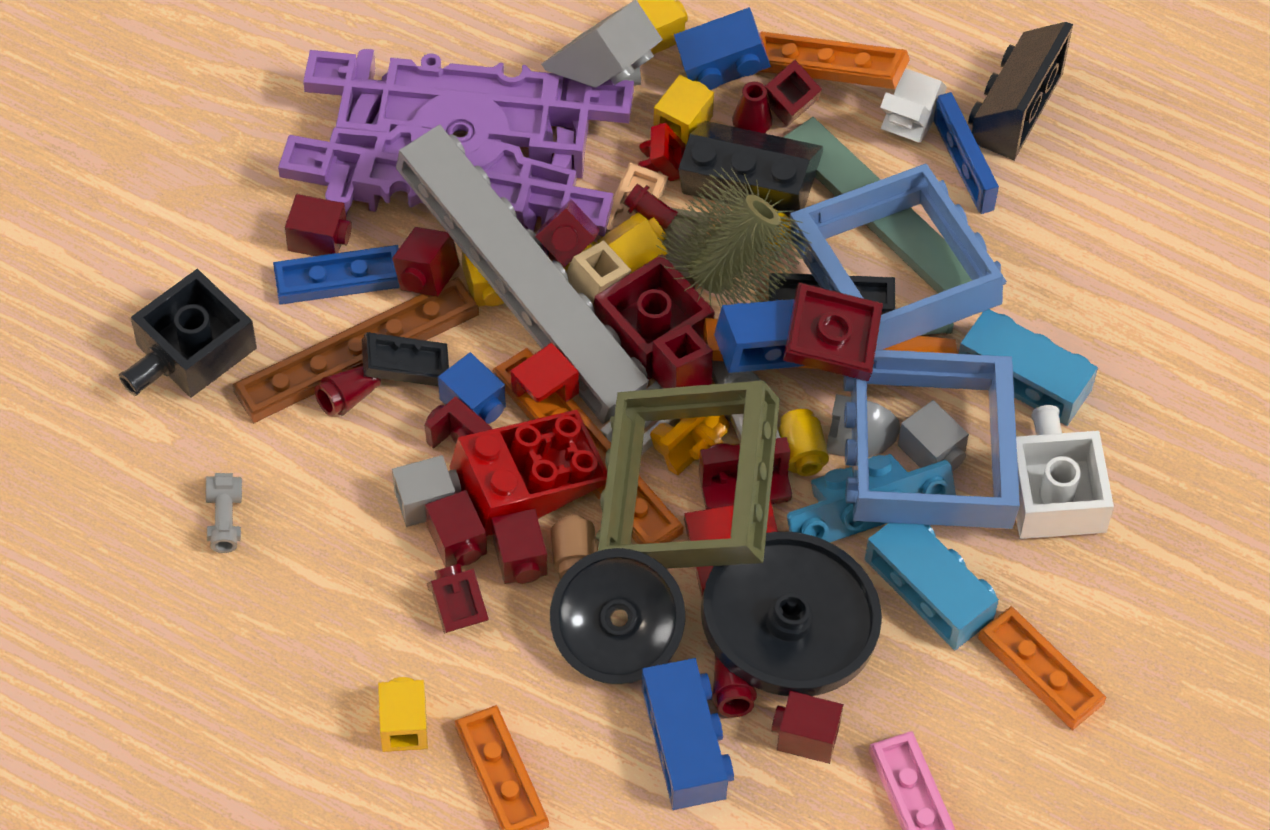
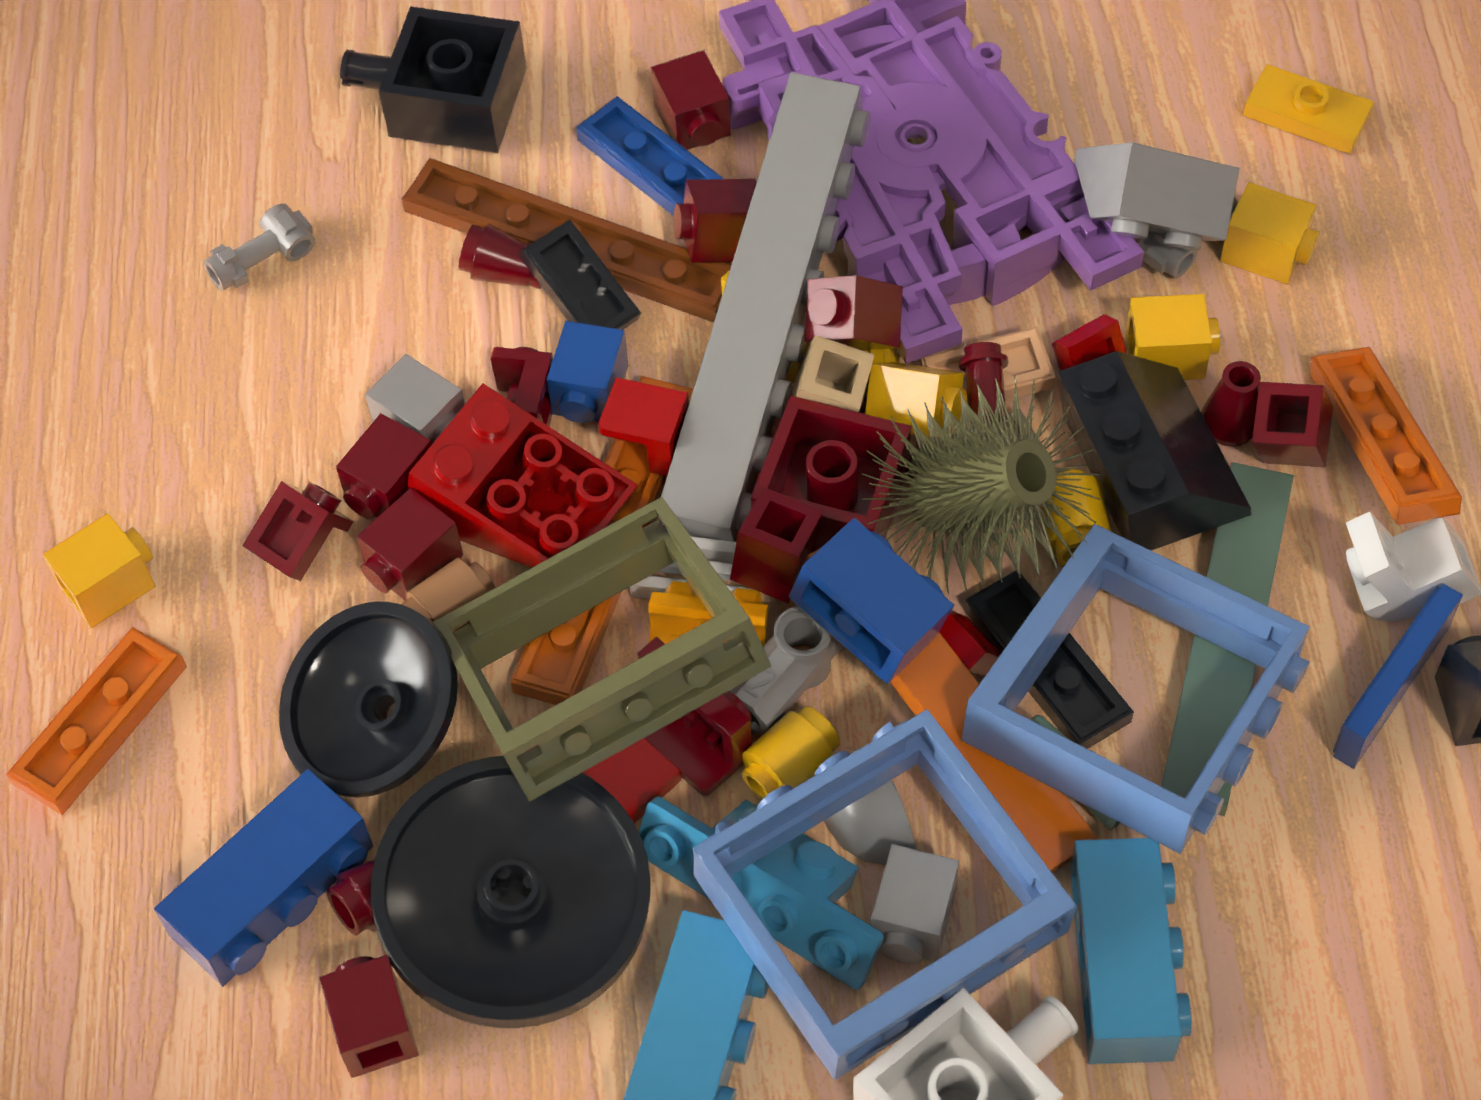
camera: 60 degrees right, 0 degrees up
(722, 49) = (1289, 318): blue brick -> none
(833, 332) = (920, 664): dark red tile -> none

